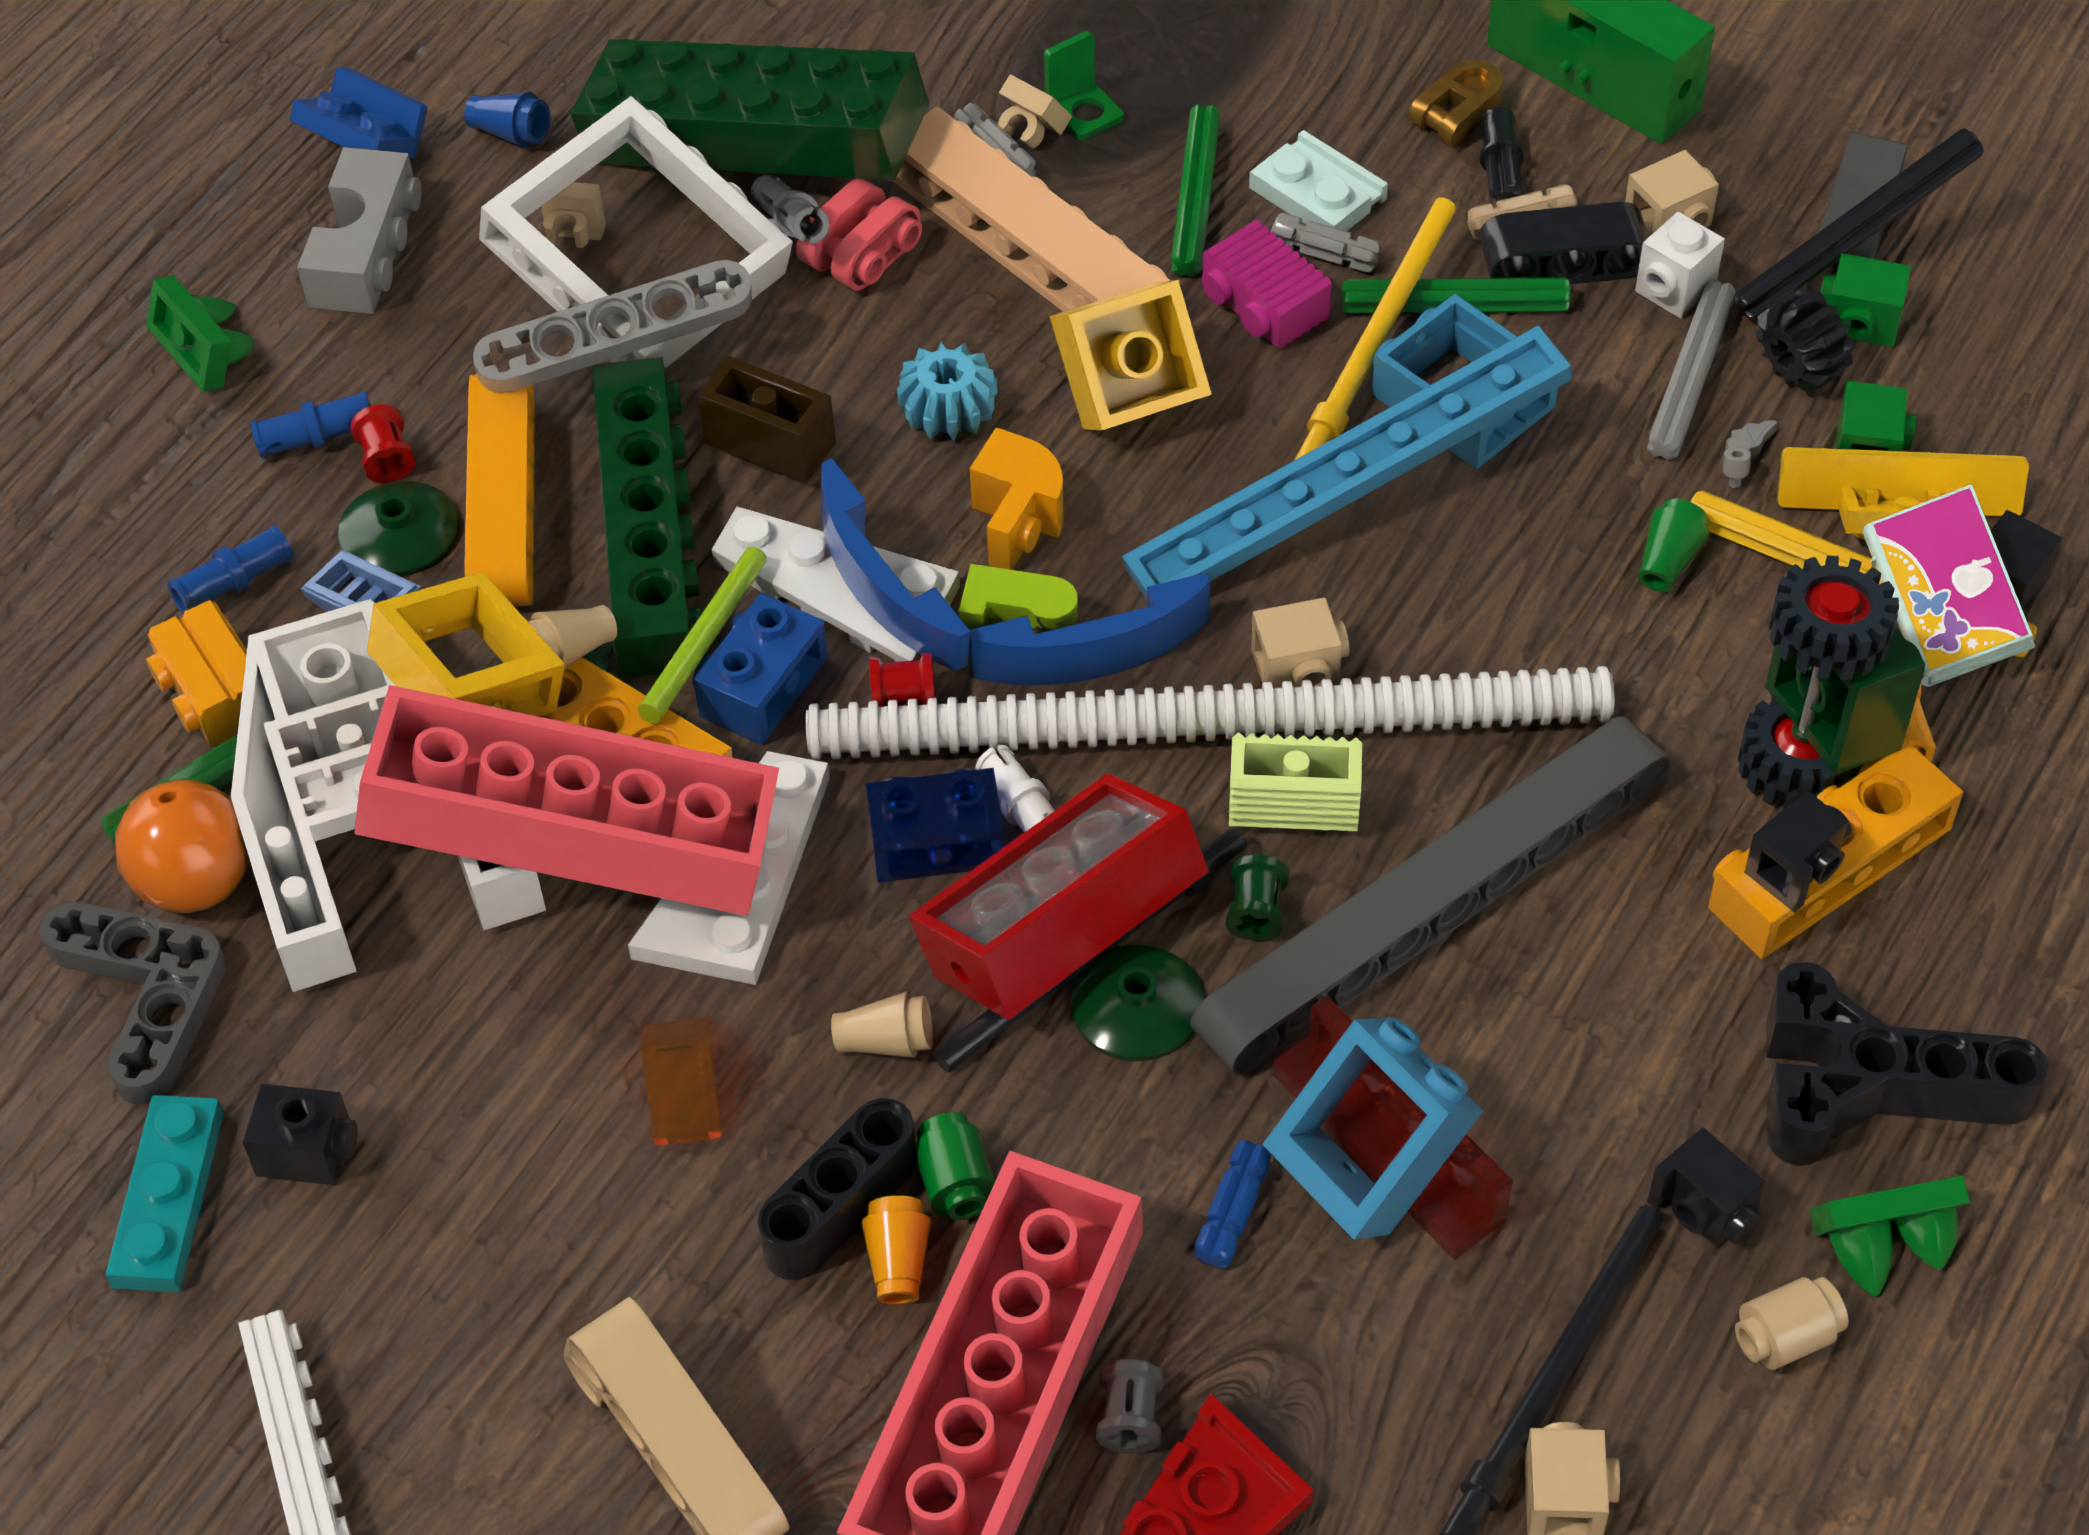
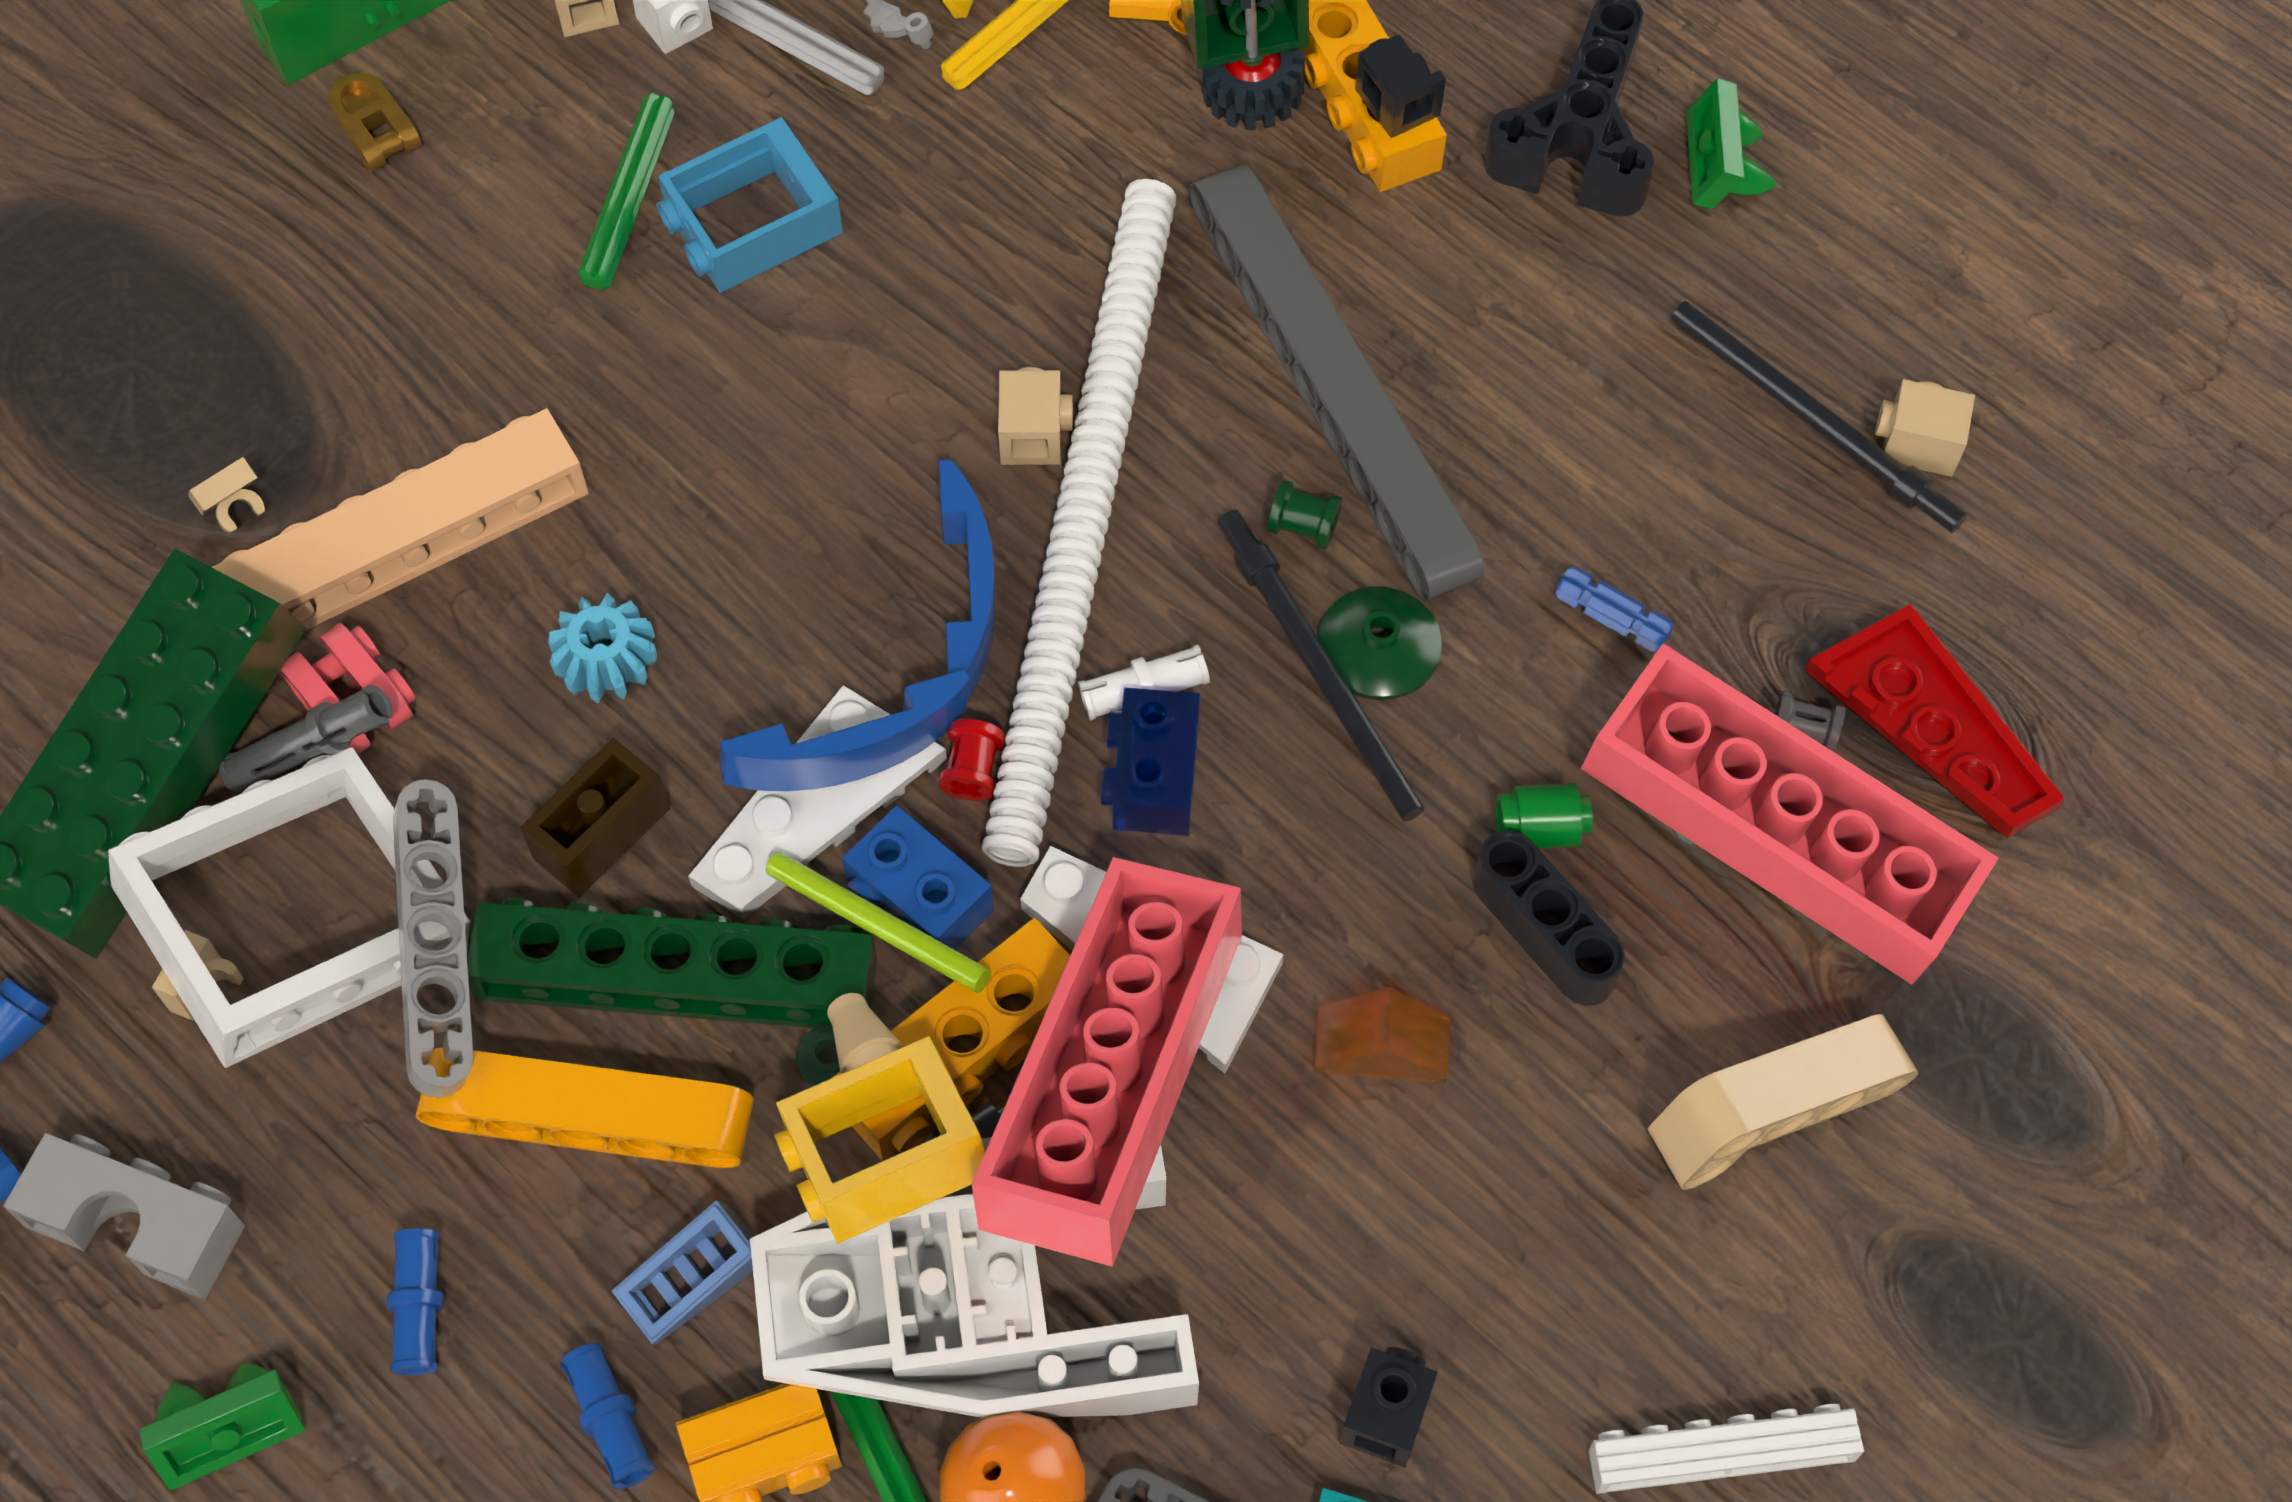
camera: 80 degrees left, 10 degrees up
(380, 434) = (474, 1226): red bush -> none
(400, 527) = (594, 1262): dark green dish -> none
(885, 1027) = (1375, 847): tan cone -> none
(896, 1246) = (1616, 881): light orange cone -> none
(995, 136) = (246, 537): light grey axle -> none
(1006, 594) = (906, 638): lime leg -> none
(1023, 492) = (757, 601): light orange brick -> none
(1059, 895) = (1285, 662): red brick -> none
(1071, 81) = (202, 447): green bracket -> none
(1130, 355) = (641, 461): yellow brick -> none
(1195, 191) = (396, 373): green axle -> none
(1266, 284) = (561, 337): dark pink brick -> none
(1295, 782) = (1200, 448): yellowish green brick -> none
(1317, 183) = (431, 268): light aqua plate -> none
(1327, 1171) = (1619, 519): dark azure window -> none
(1328, 243) = (515, 279): light grey axle -> none
(1331, 416) = (749, 328): yellow bar -> none
(1353, 463) = (850, 318): dark azure plate -> none
(1374, 1123) = (1570, 466): clear red fence -> none
(1501, 153) = (460, 106): black axle -> none
(1556, 197) = (539, 110): tan axle -> none
(1566, 242) = (604, 84): black beam -> none
(1672, 541) = (995, 102): green cone -> none
(1709, 1190) = (1675, 258): black brick -> none
(1791, 1322) = (1805, 238): tan brick -> none

